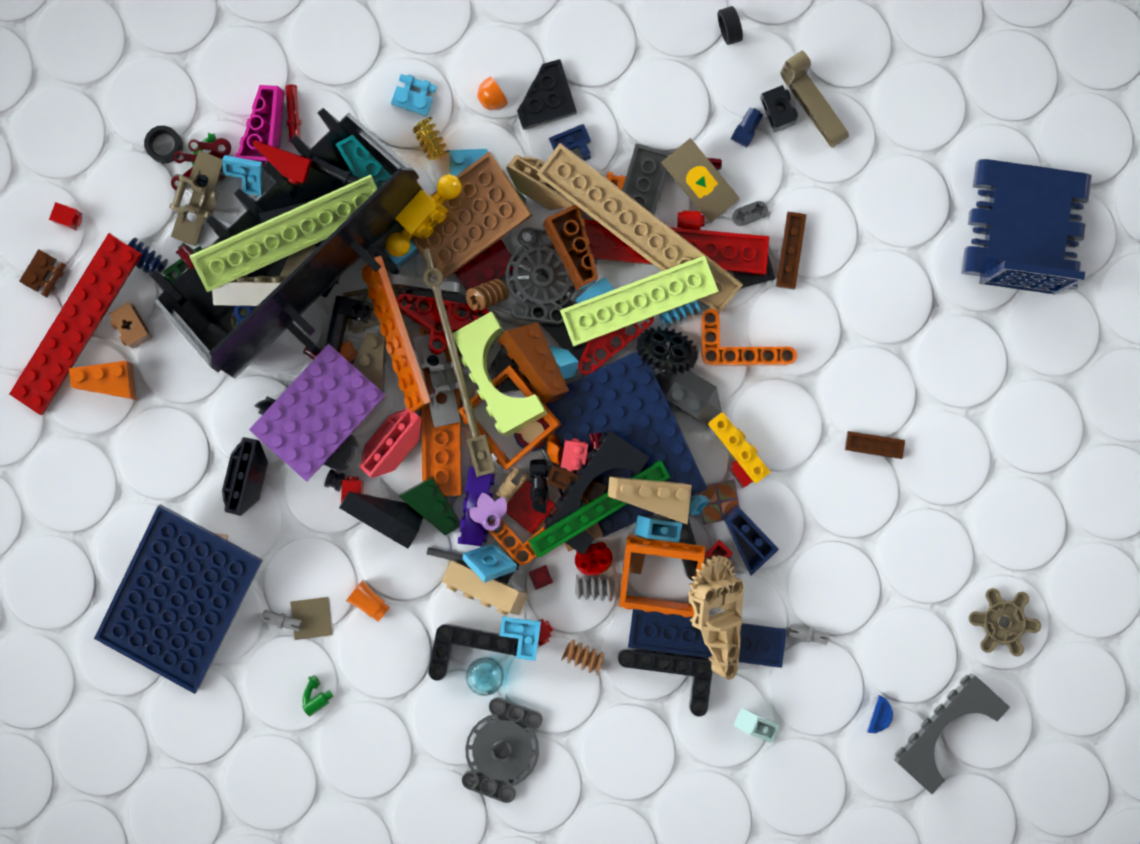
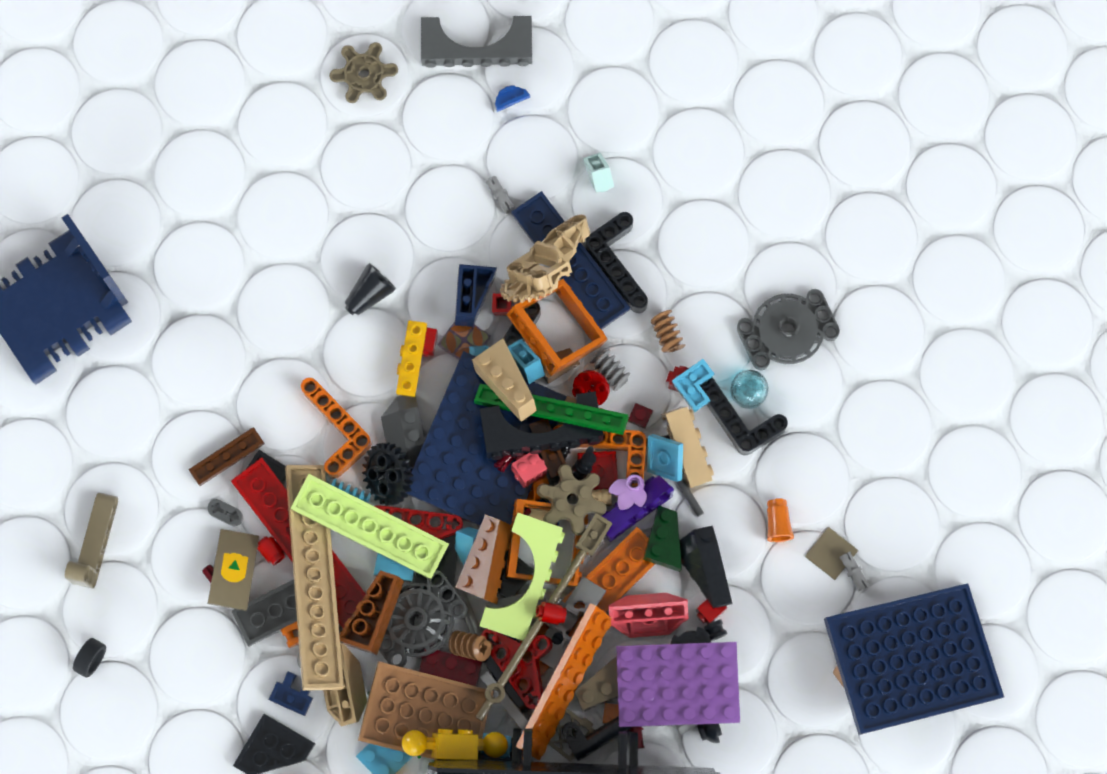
camera: 135 degrees left, 10 degrees down
(244, 476) = (779, 700): black wedge -> none
(313, 705) = (890, 490): green plant -> none
(450, 368) = (551, 613): none -> red brick
(534, 469) = (558, 498): none -> dark tan plate
(745, 131) = (164, 572): dark blue piece -> none
(777, 119) = (124, 574): black brick -> none
(822, 466) = (368, 290): none -> black cone
(874, 445) = (319, 269): reddish brown plate -> none

